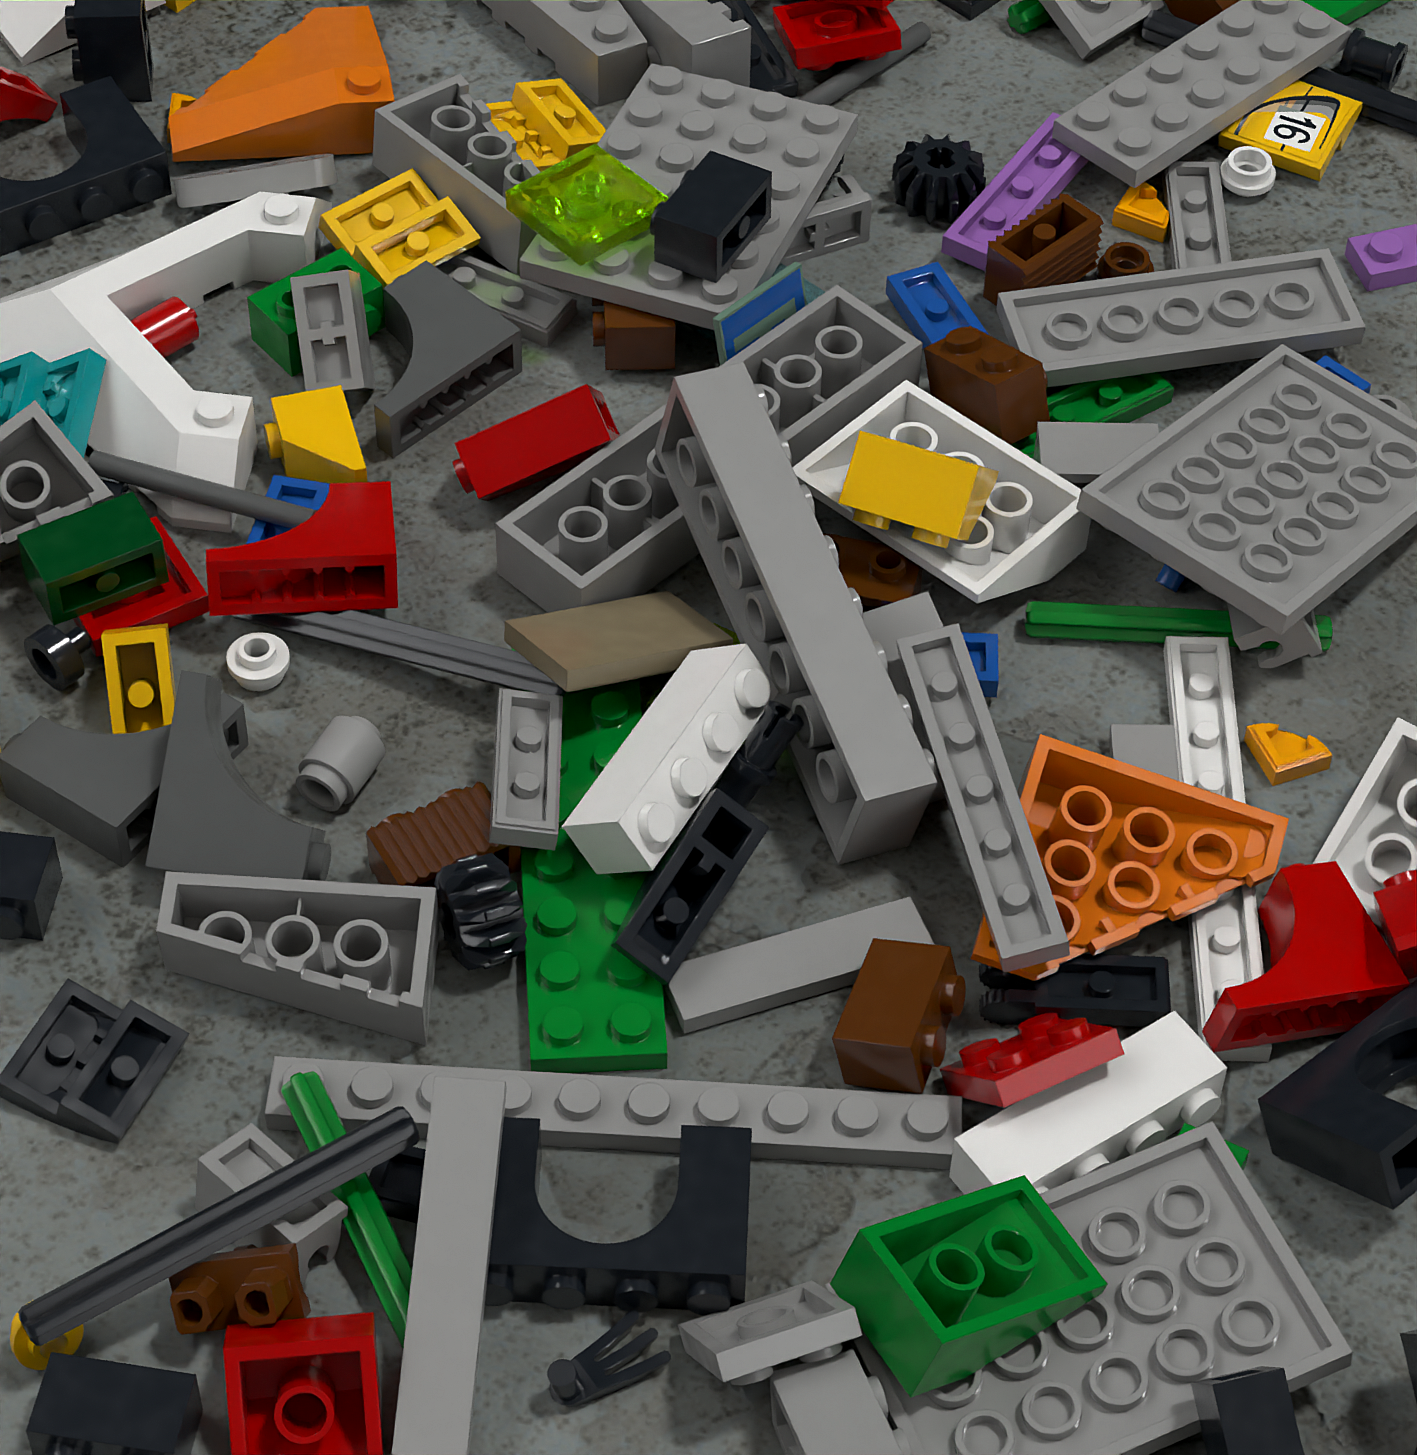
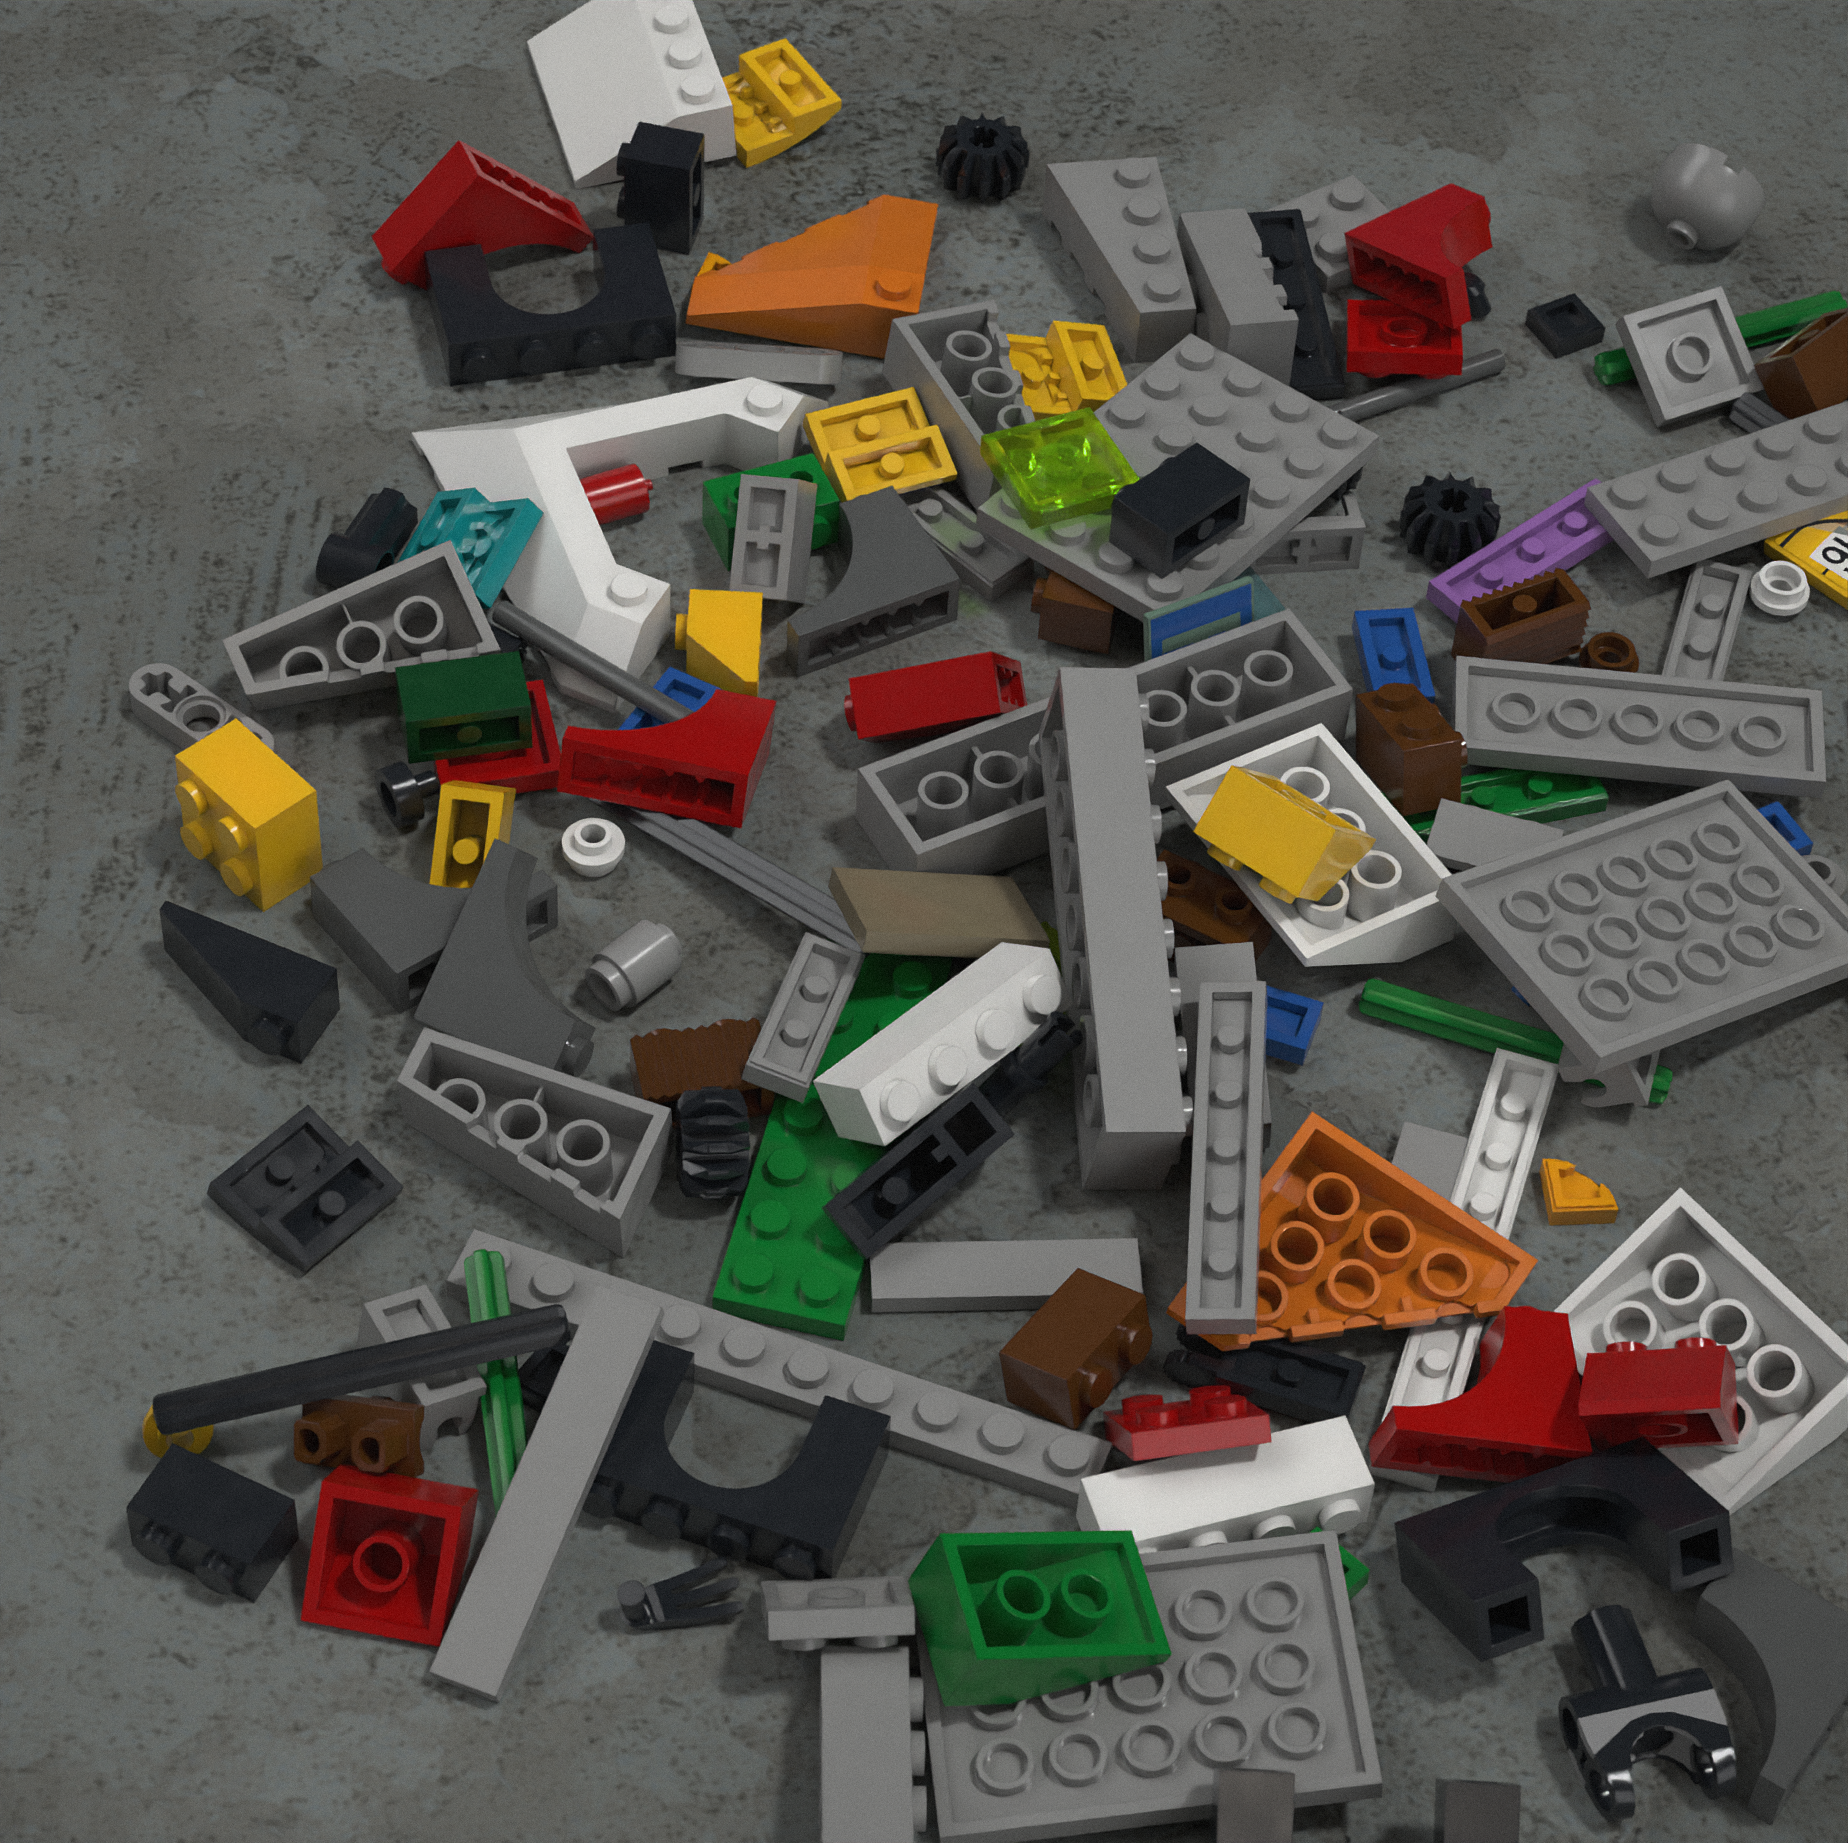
camera: 15 degrees right, 0 degrees up
(1142, 213) = (1652, 605): light orange tile -> none

